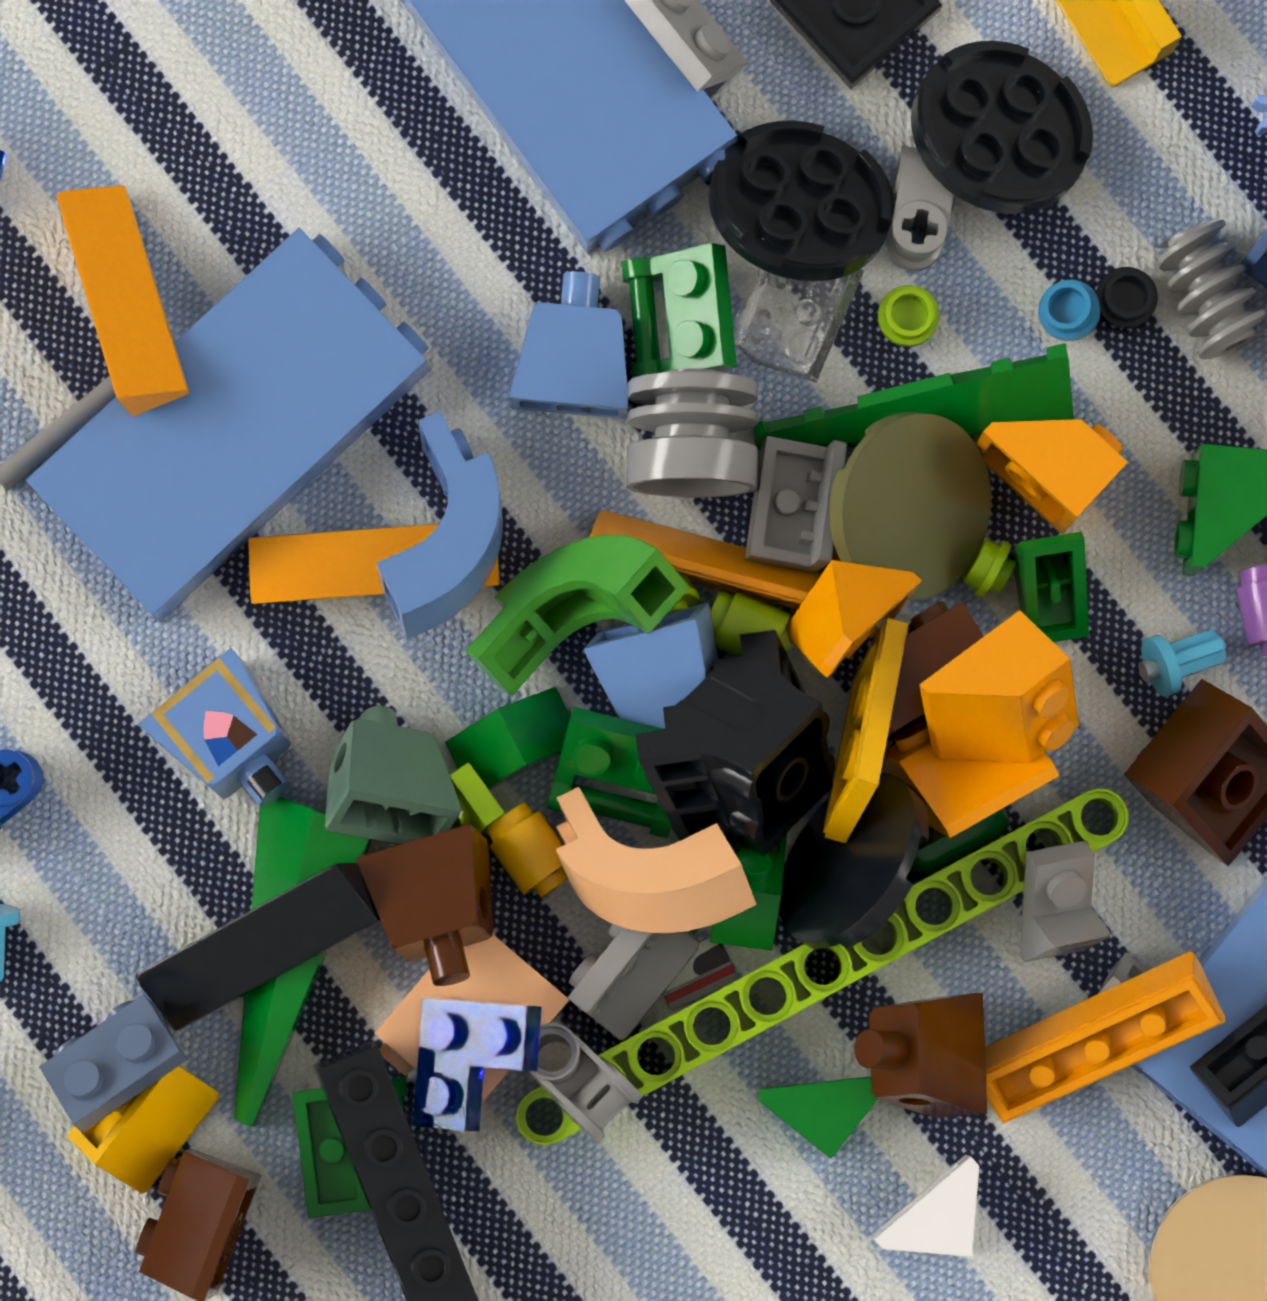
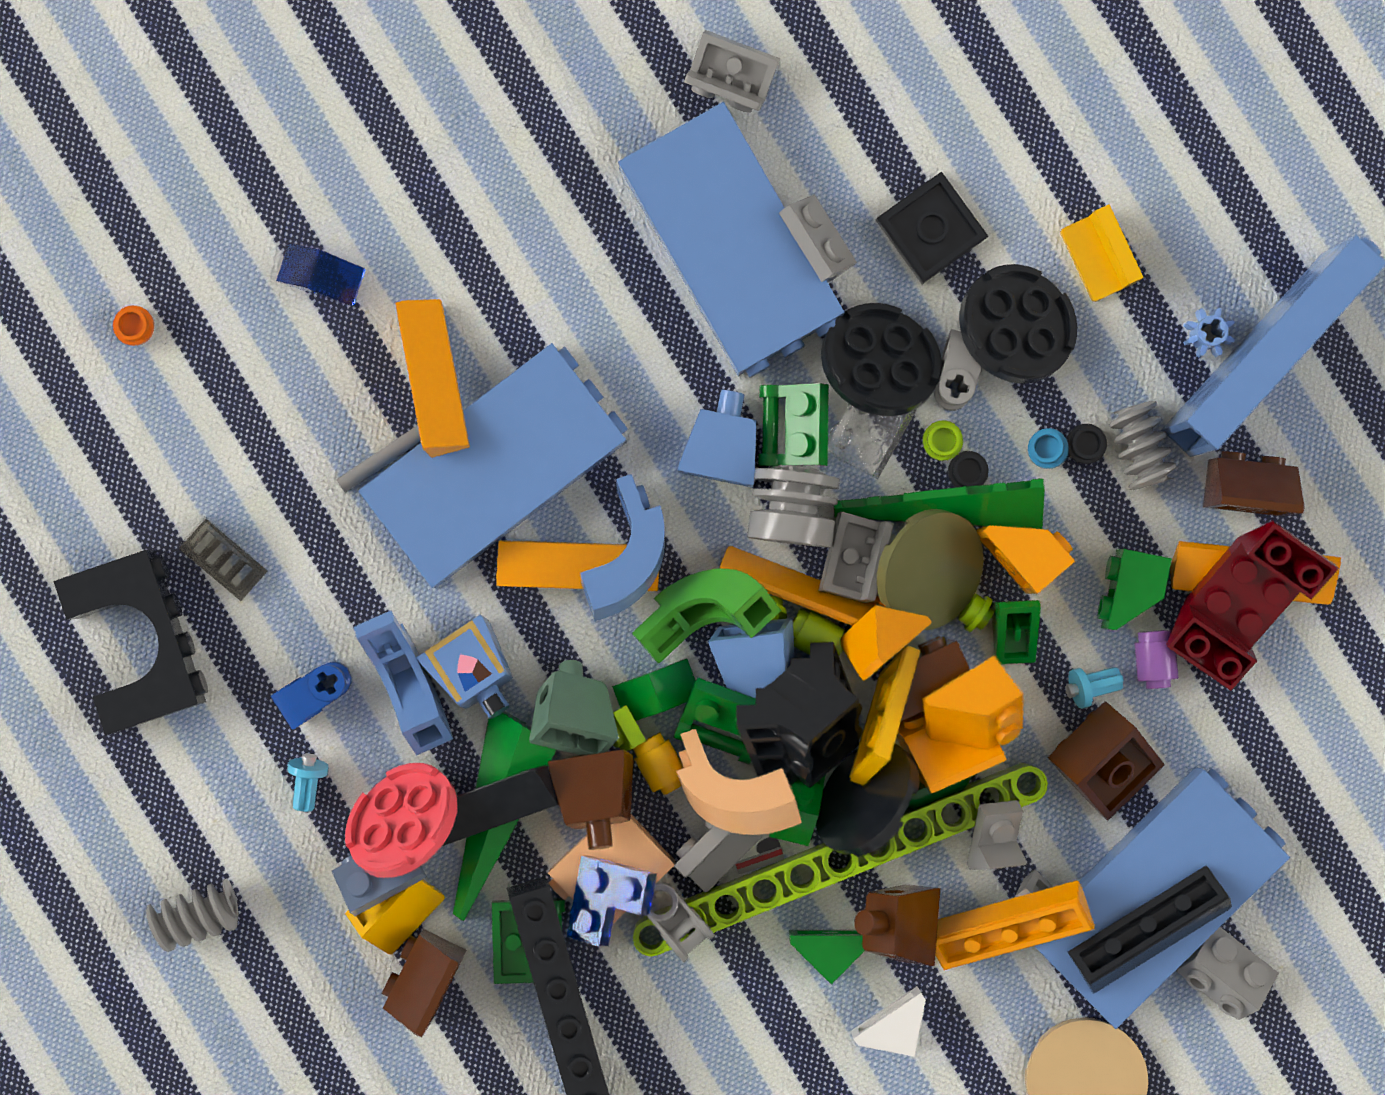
camera: 10 degrees right, 5 degrees up
(124, 762) = (406, 682): none -> medium blue arch
(140, 975) = (401, 820): none -> coral tile
(951, 352) = (968, 469): none -> black plate

